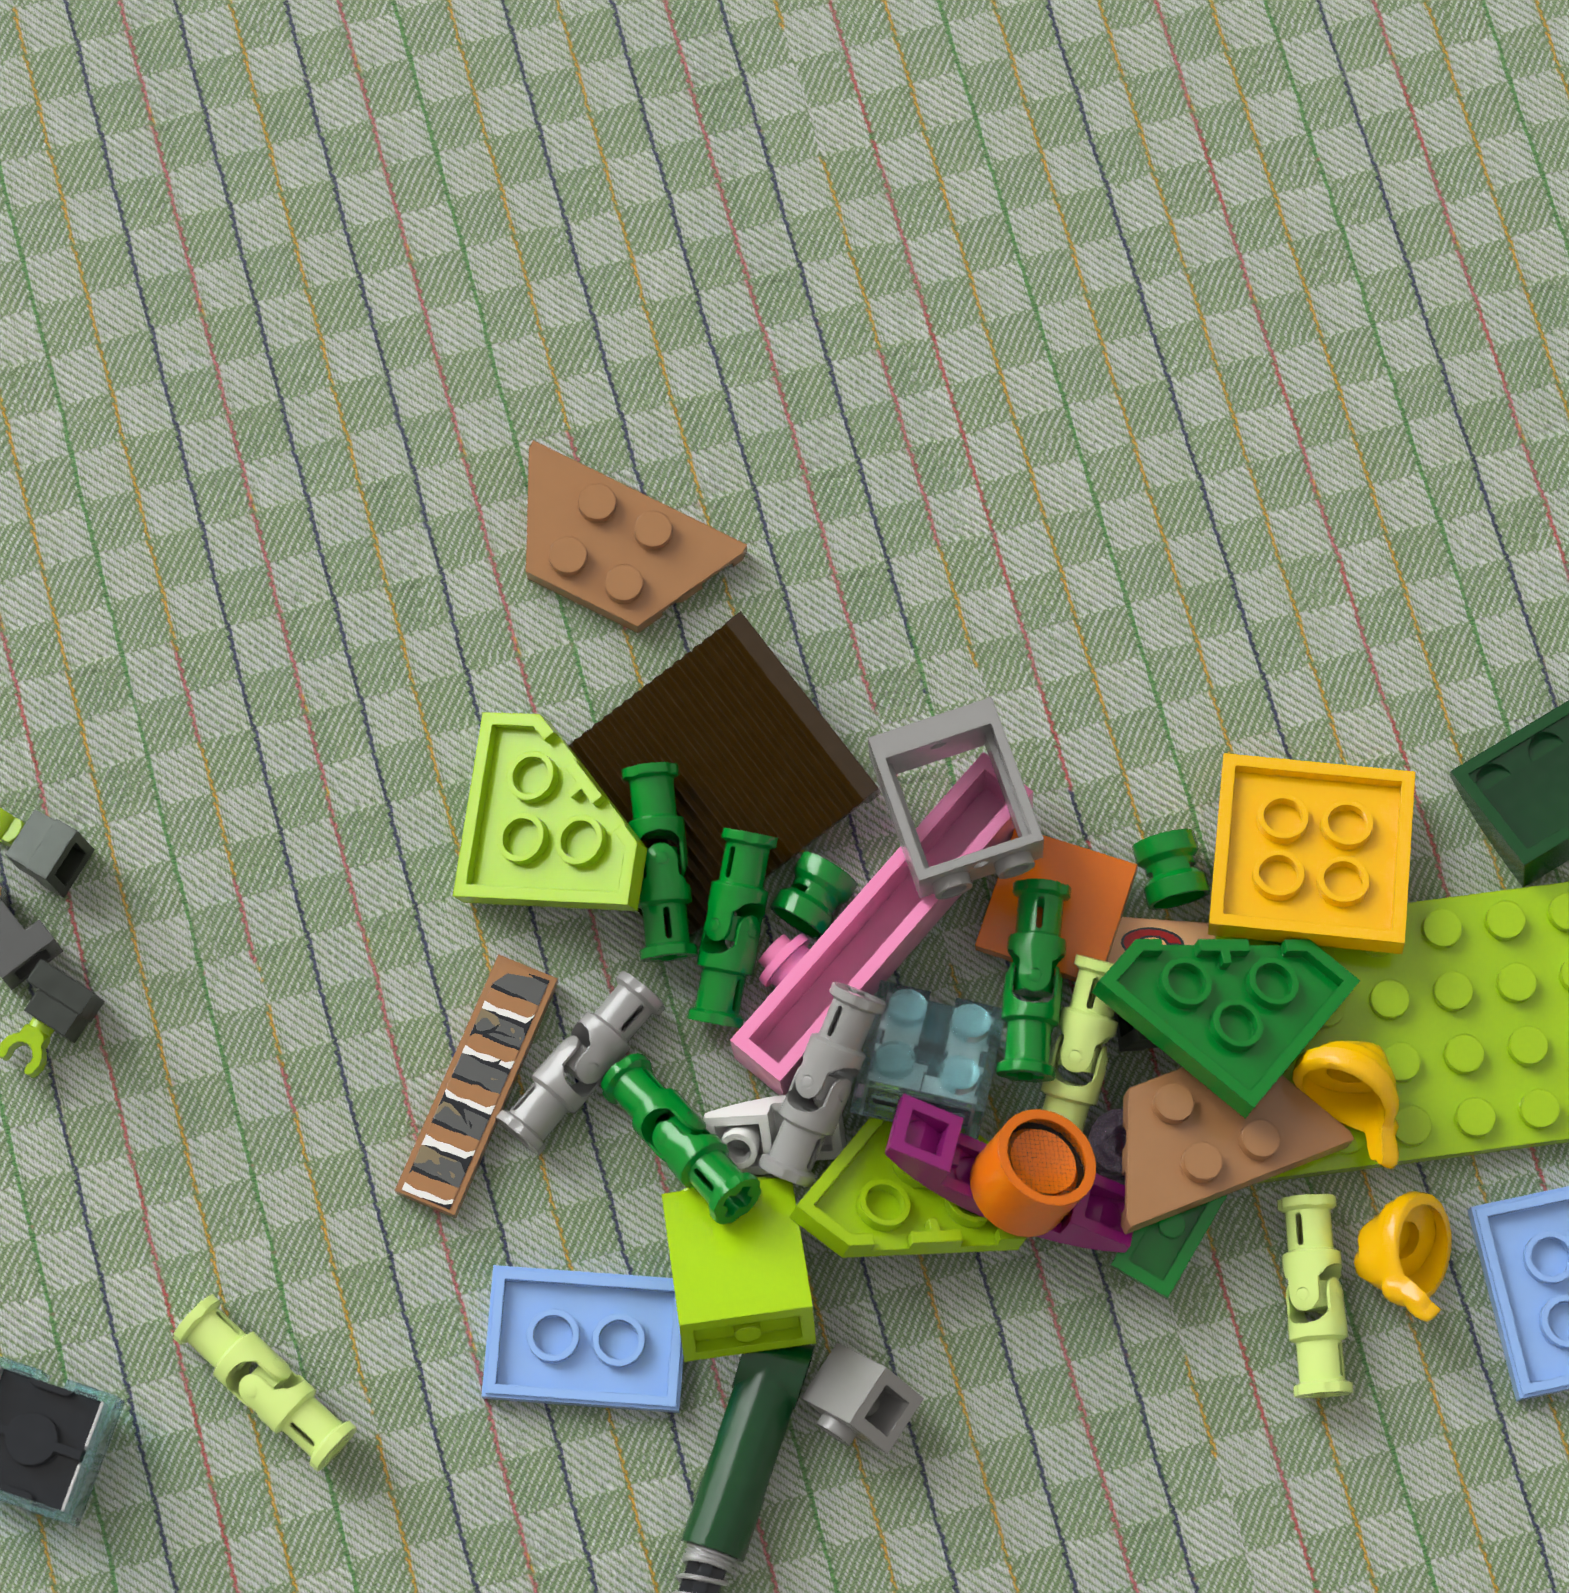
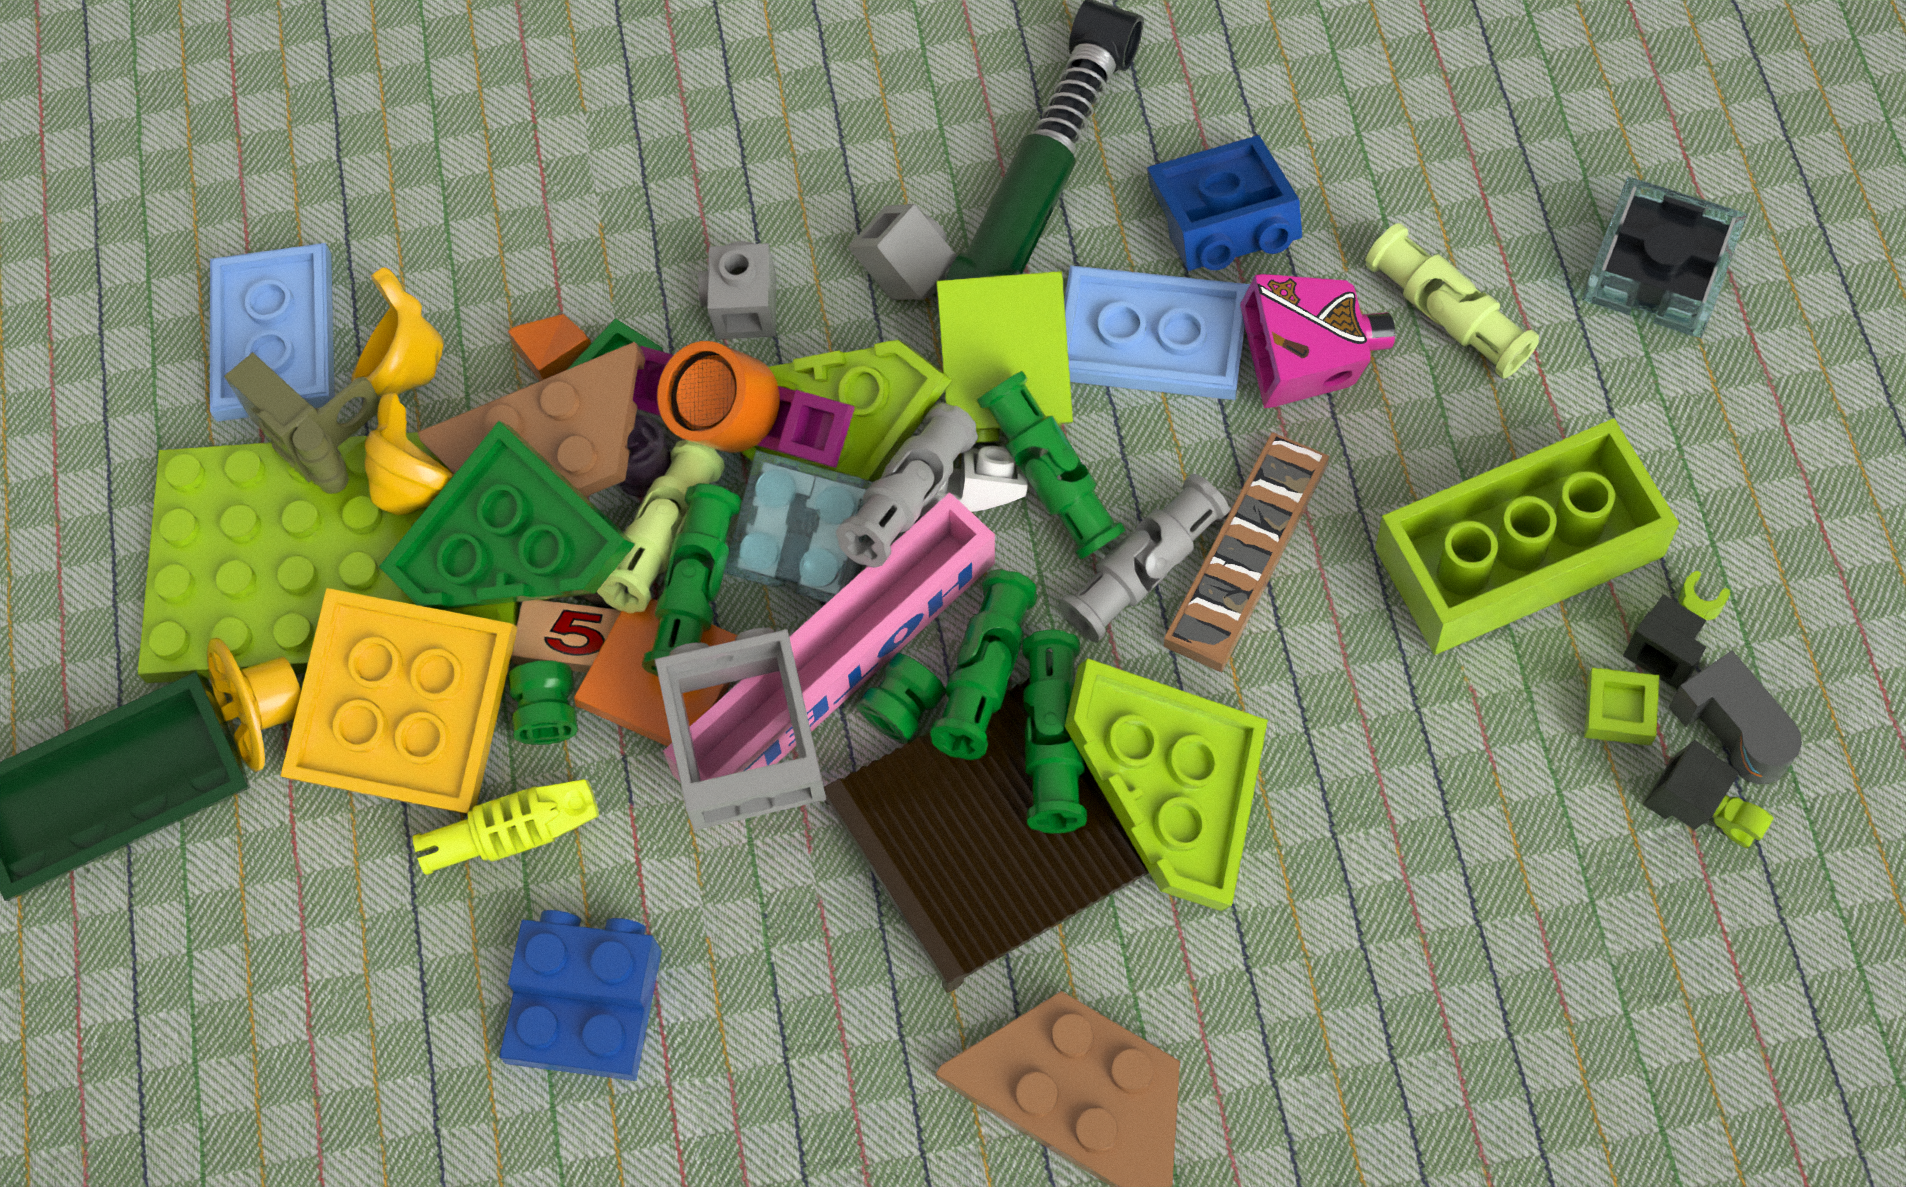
camera: 165 degrees left, 10 degrees down
(110, 933) = (1621, 706): none -> lime plate
(196, 1093) = (1525, 536): none -> lime brick
(414, 1317) = (1309, 336): none -> dark pink torso
(510, 1491) = (1226, 203): none -> blue plate
(782, 958) = (934, 637): bright pink plate -> none
(1039, 1355) = (740, 290): none -> light grey brick
(1085, 594) = (580, 996): none -> blue plate
(1181, 747) = (509, 825): none -> neon yellow hinge
(1236, 1279) = (549, 344): none -> orange slope
(1314, 1286) = (484, 322): yellowish green piece -> none
(1457, 852) = (260, 697): none -> yellow wheel
(1485, 1125) = (297, 431): none -> olive piece

